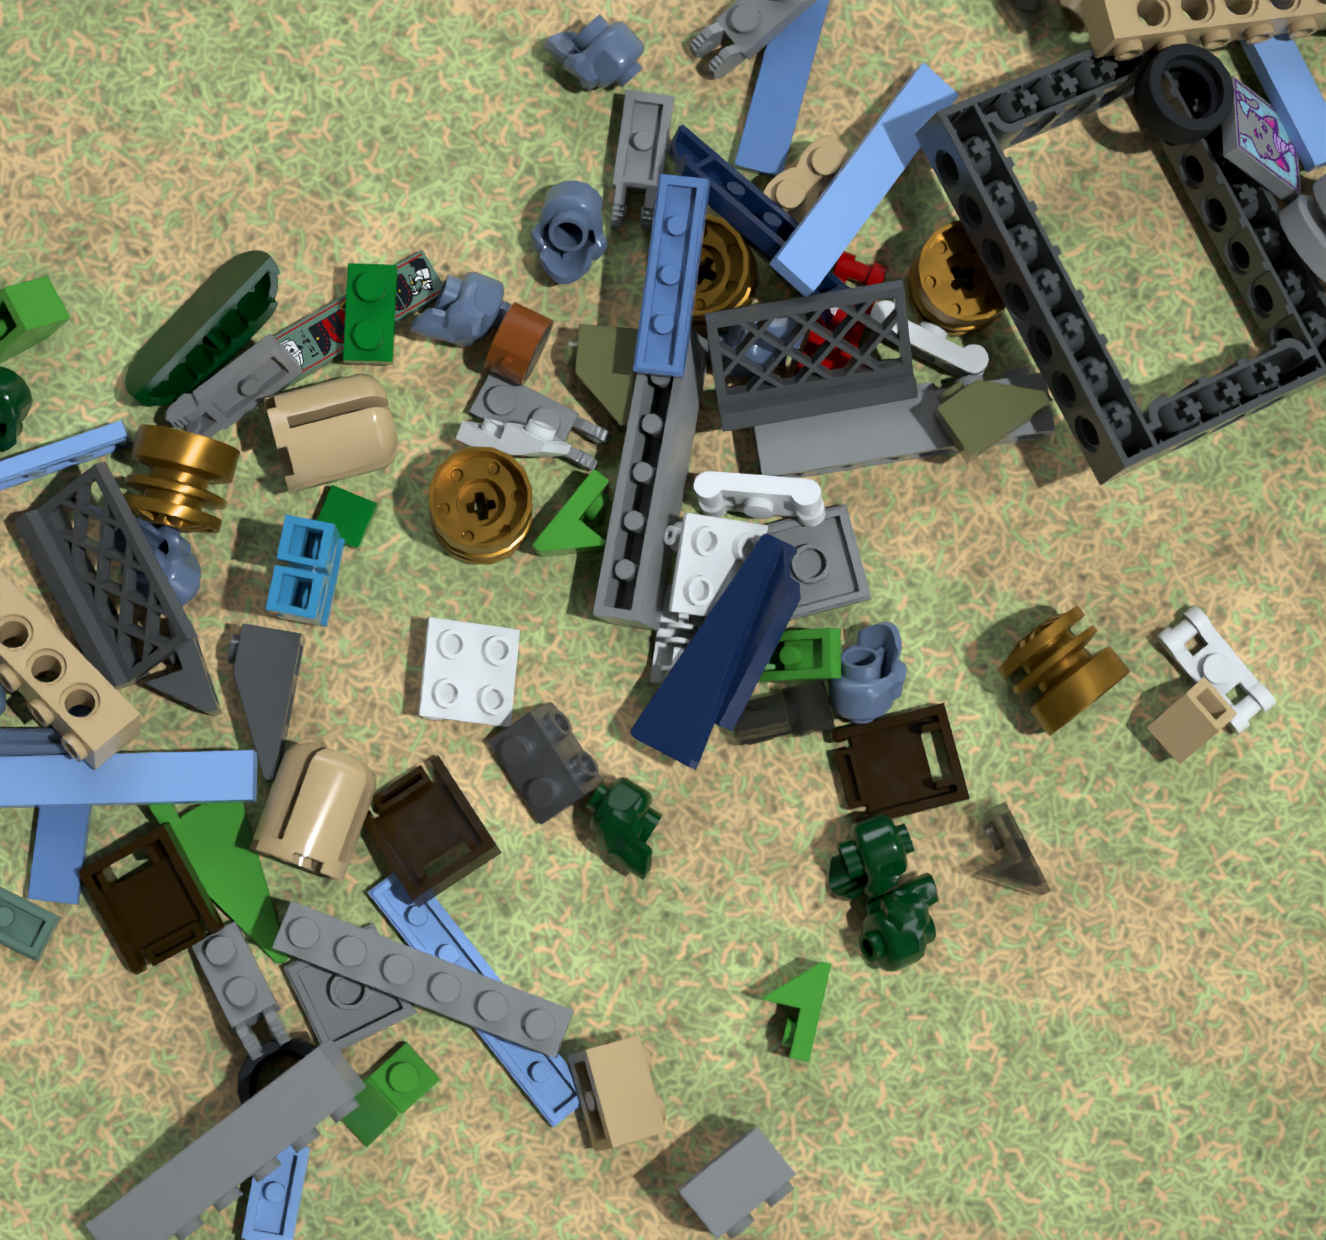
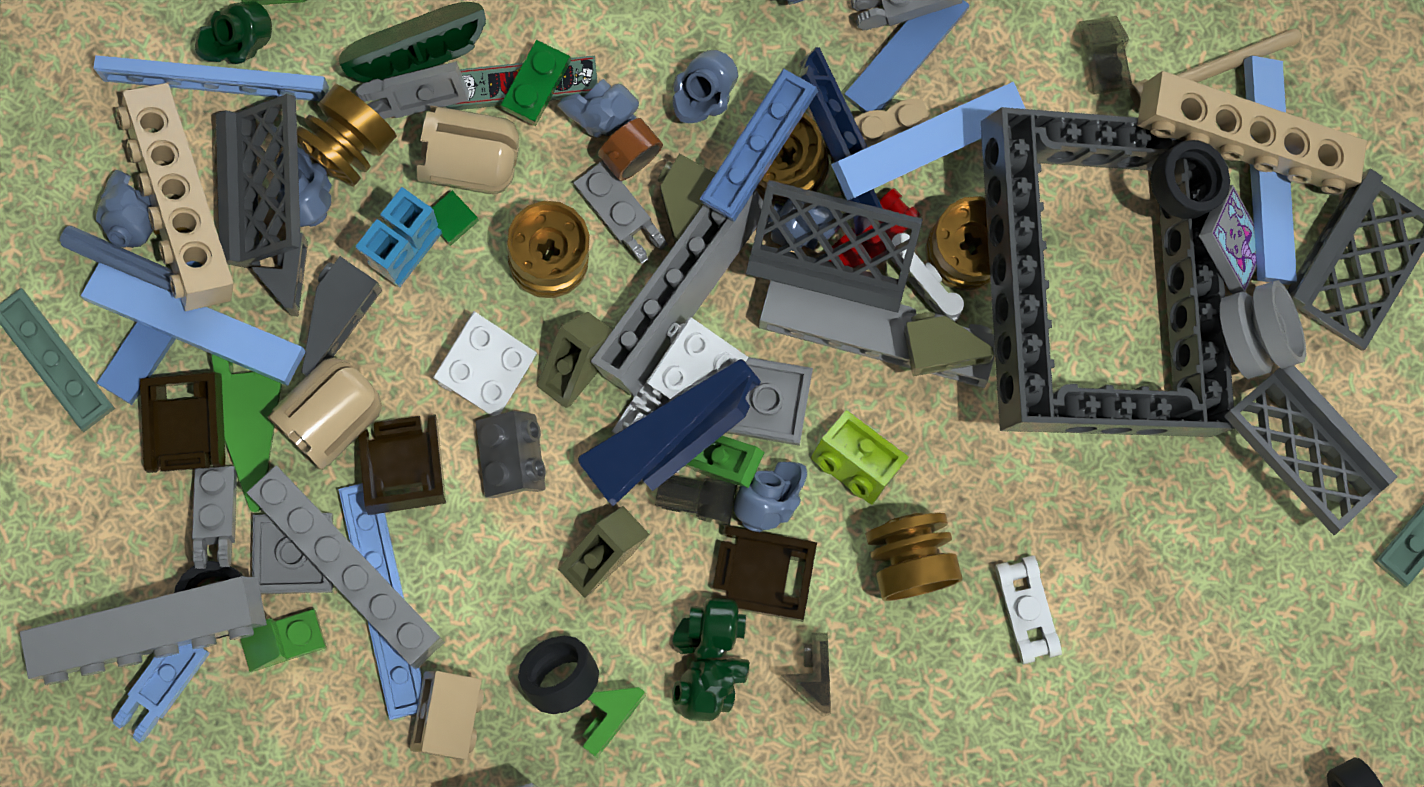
camera: 25 degrees right, 5 degrees down
(531, 440) = (603, 218): white slope -> none
(566, 531) = (601, 296): bright green slope -> none
(566, 618) = (569, 361): none -> olive slope
(623, 824) = (544, 522): dark green head -> none
(641, 152) = (784, 50): light grey hinge -> none
(706, 824) = (603, 551): none -> olive slope
(746, 1007) = (573, 689): none -> black tyre
(759, 496) = (752, 333): white plate -> none
(946, 583) = (858, 457): none -> lime bracket
(1191, 720) = (992, 636): tan brick -> none

